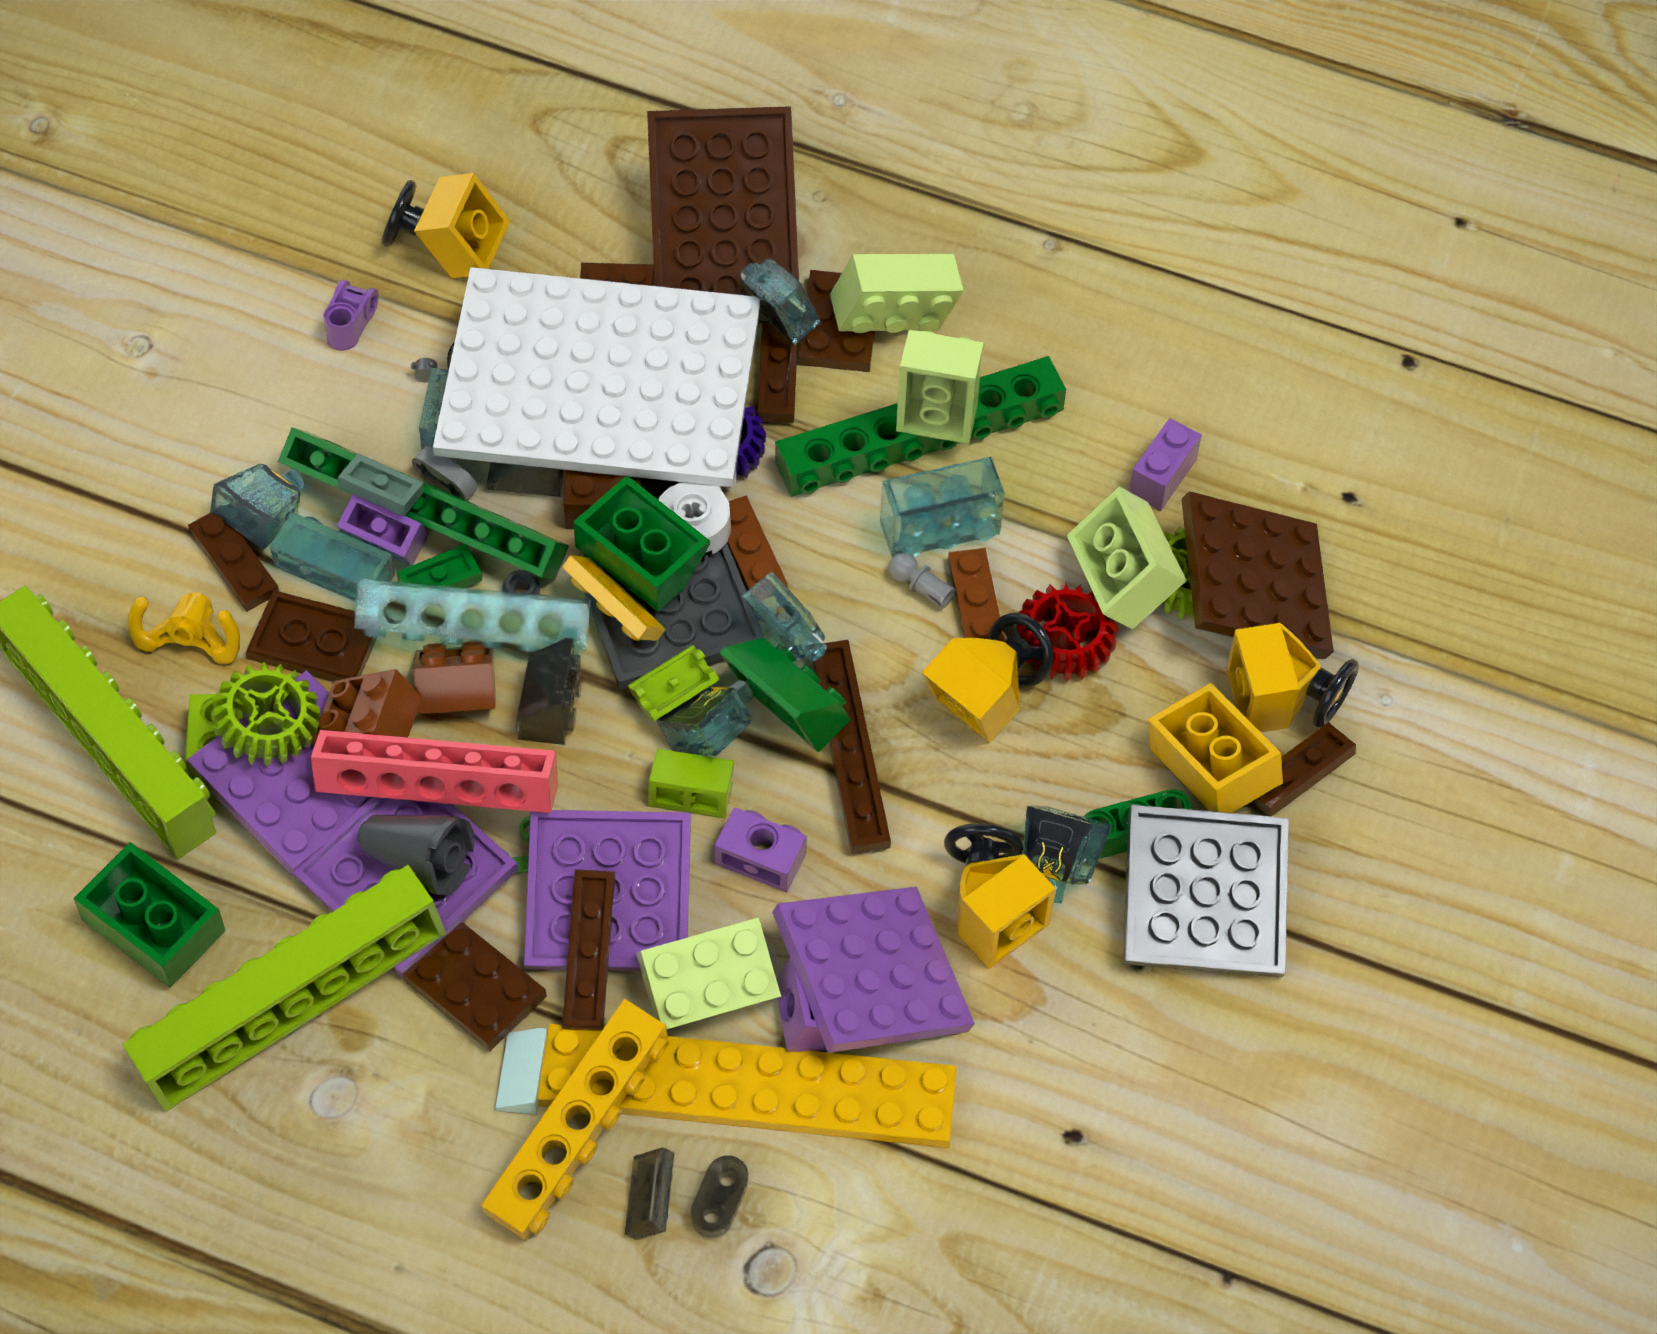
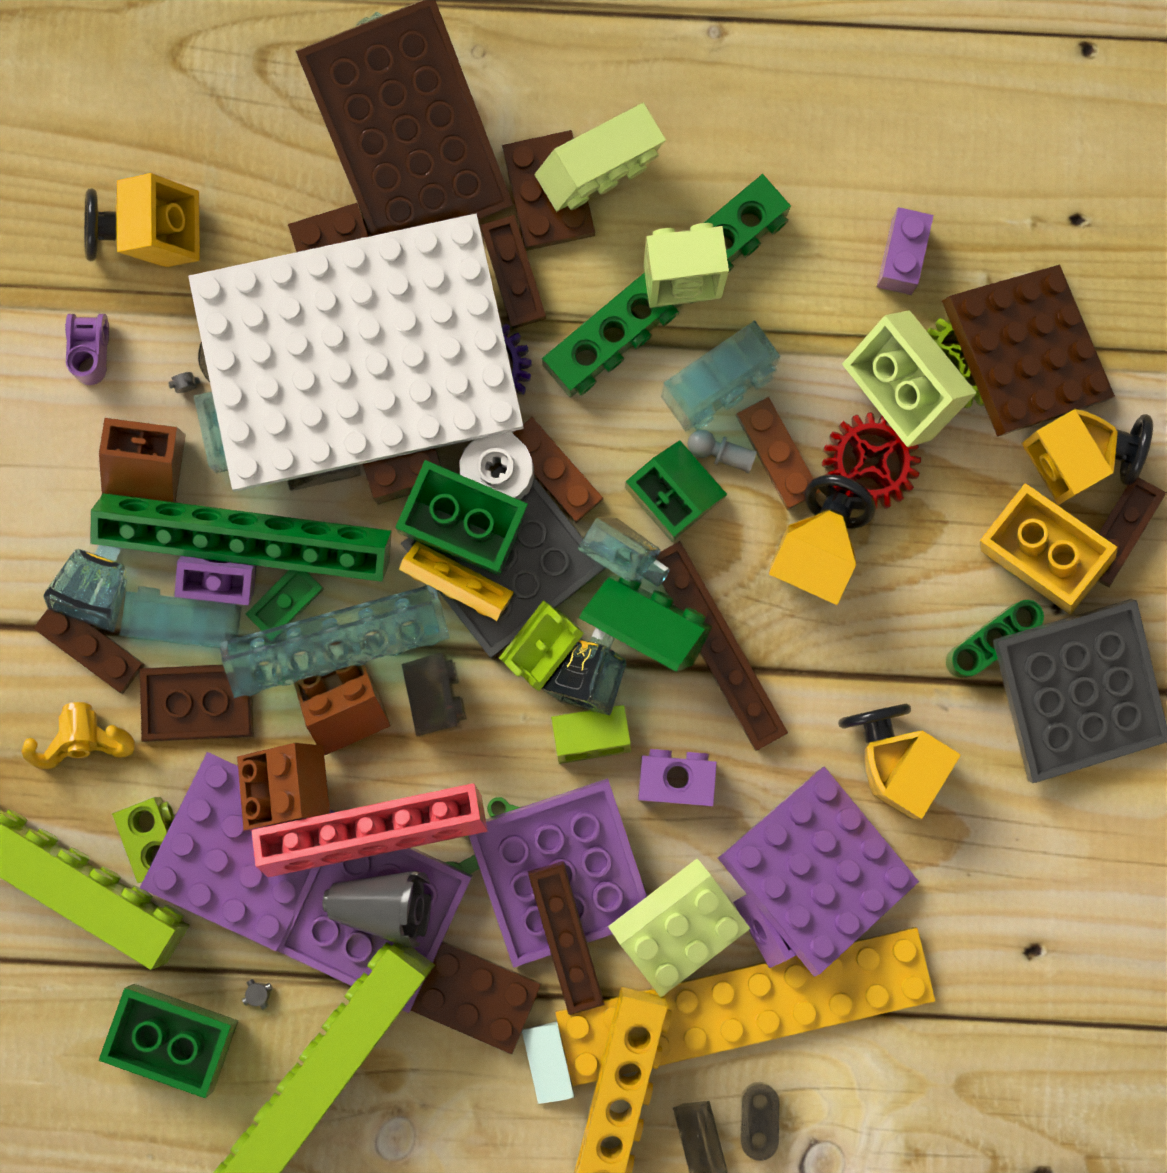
camera: 15 degrees left, 25 degrees up
(255, 913) = (257, 994): none -> flat silver piece
(273, 732) = (160, 818): lime gear -> none
(358, 410) = (140, 459): none -> dark orange slope
(380, 484) = (200, 547): sand green plate -> none
(444, 473) = (257, 496): light grey beam -> none
(521, 580) = (352, 590): dark grey plate -> none
(775, 287) = (490, 203): clear light blue torso -> none
(858, 594) = (674, 490): none -> green slope
(1063, 846) = (943, 693): torso -> none

